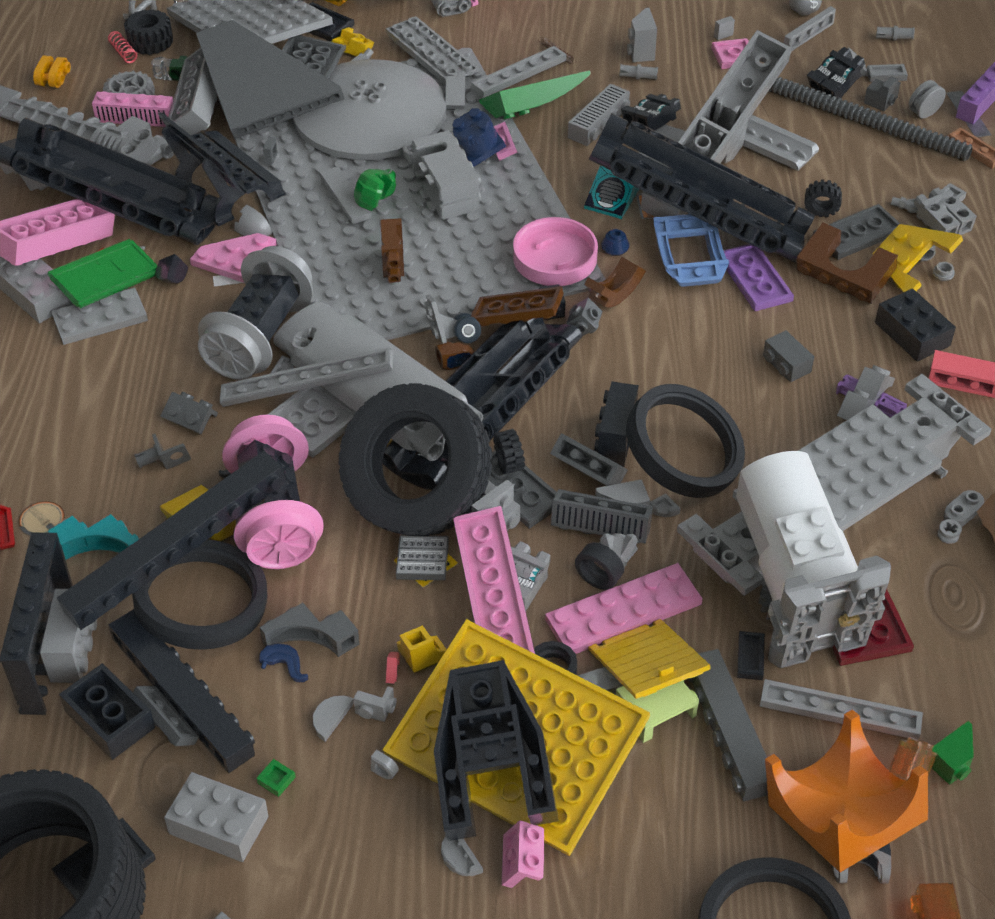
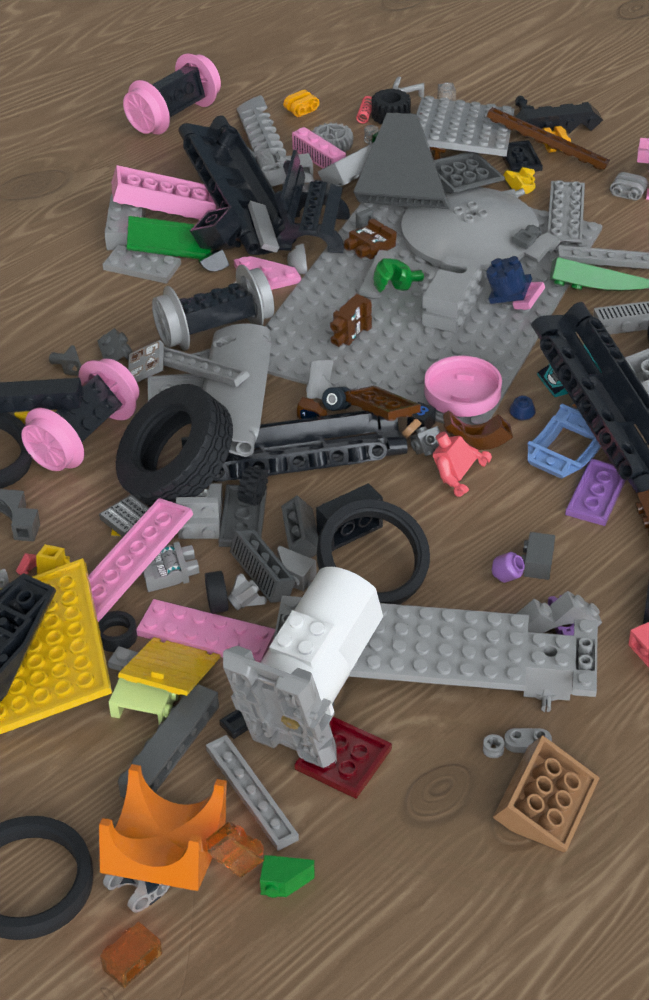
camera: 45 degrees right, 5 degrees down
(151, 234) = (218, 229): none -> black piece
(187, 209) = (263, 226): none -> light grey tile
(244, 401) = (146, 361): none -> light grey tile
(302, 170) = (371, 239): none -> reddish brown hips
(439, 88) = (526, 237): none -> dark grey plate
(564, 313) = (410, 429): none -> medium nougat tile
(630, 320) = (454, 460): none -> coral torso
(782, 381) = (508, 567): none -> medium lavender head

